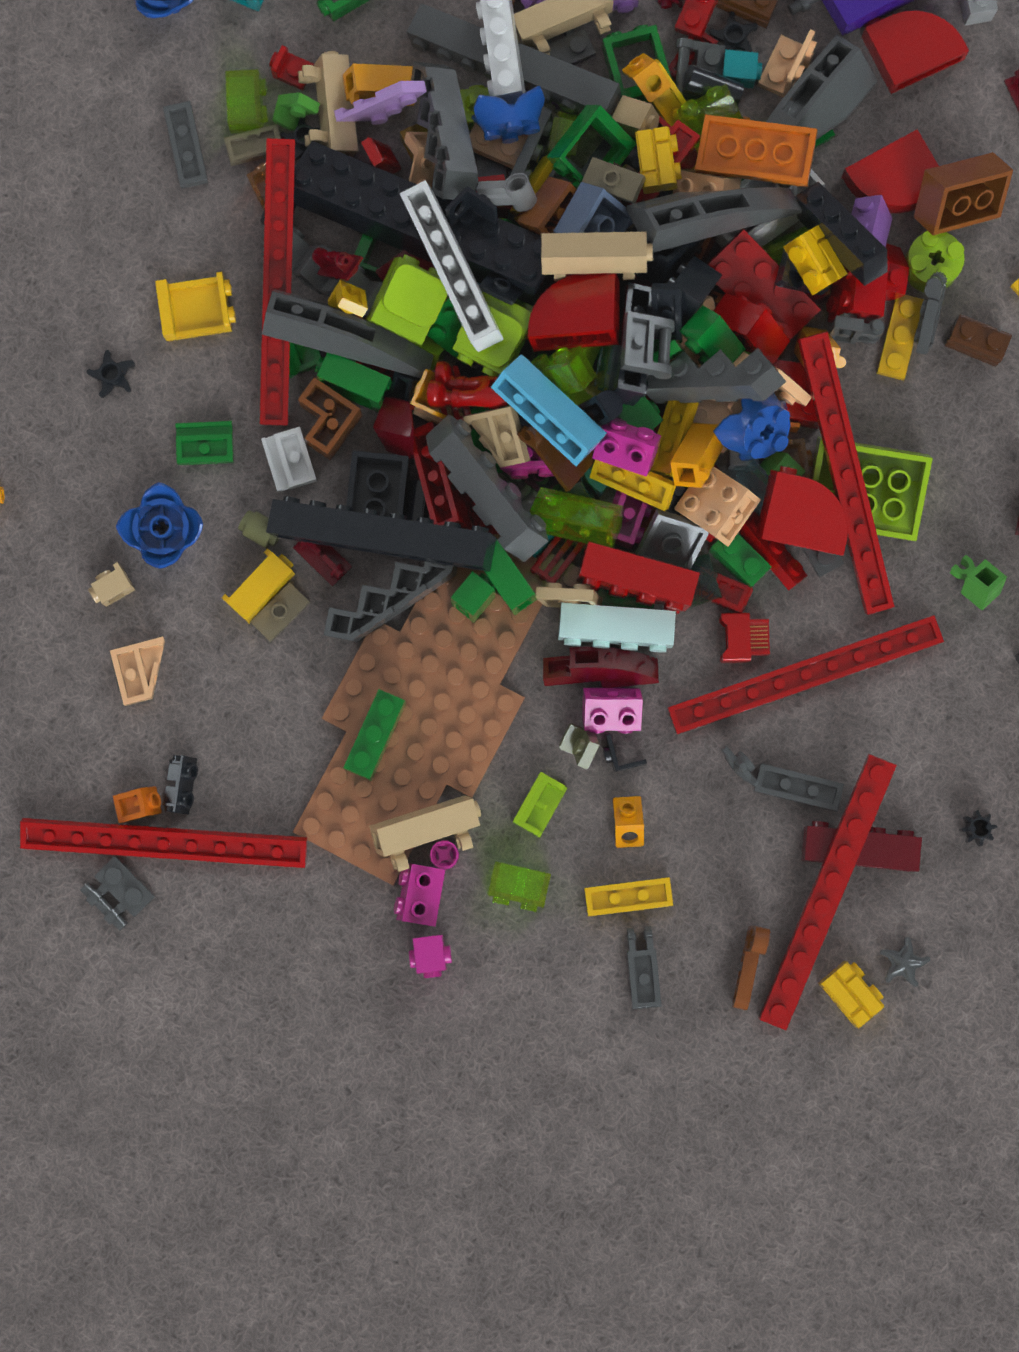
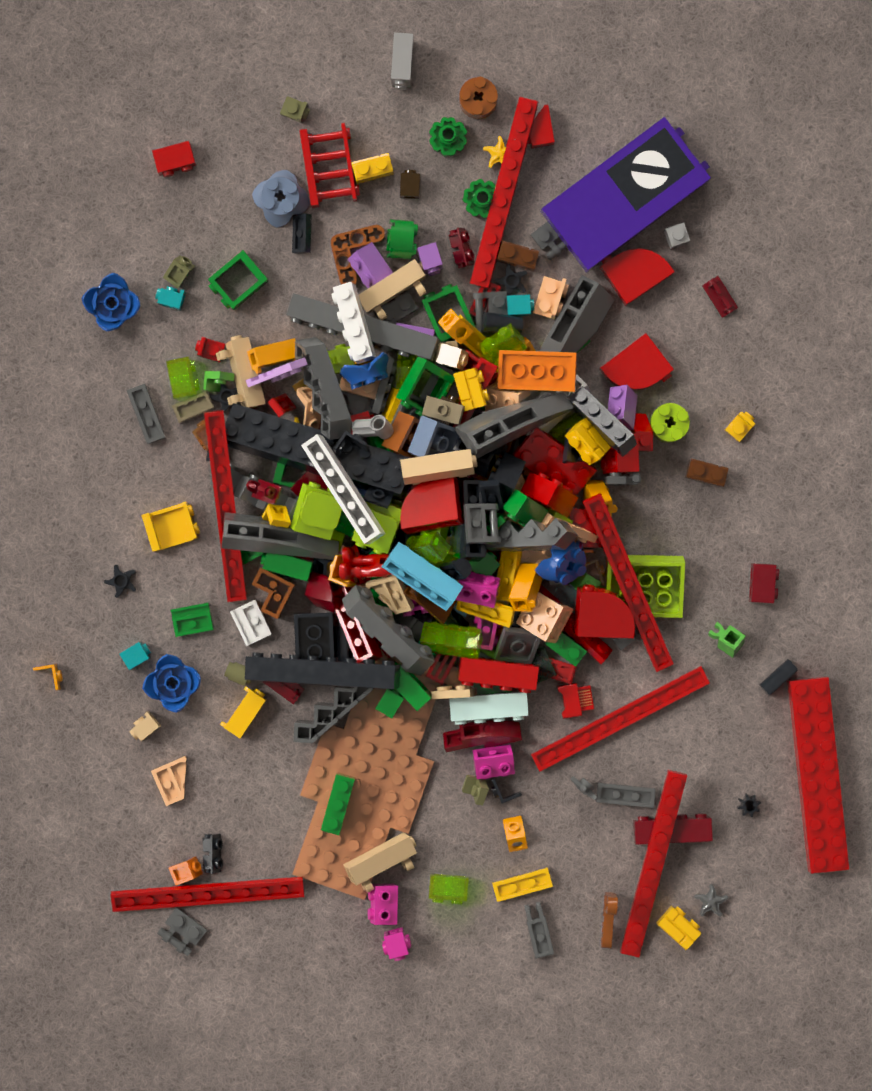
camera: 10 degrees left, 5 degrees up
(114, 481) = (135, 655): none -> teal brick
(280, 612) = (260, 727): dark tan plate -> none
(444, 854) = (397, 877): dark pink wheel -> none
(540, 804) = (454, 832): lime hinge -> none
(900, 337) = (654, 477): yellow plate -> none
(931, 312) = (671, 459): dark grey hinge -> none
(963, 193) = (682, 376): dark orange brick -> none

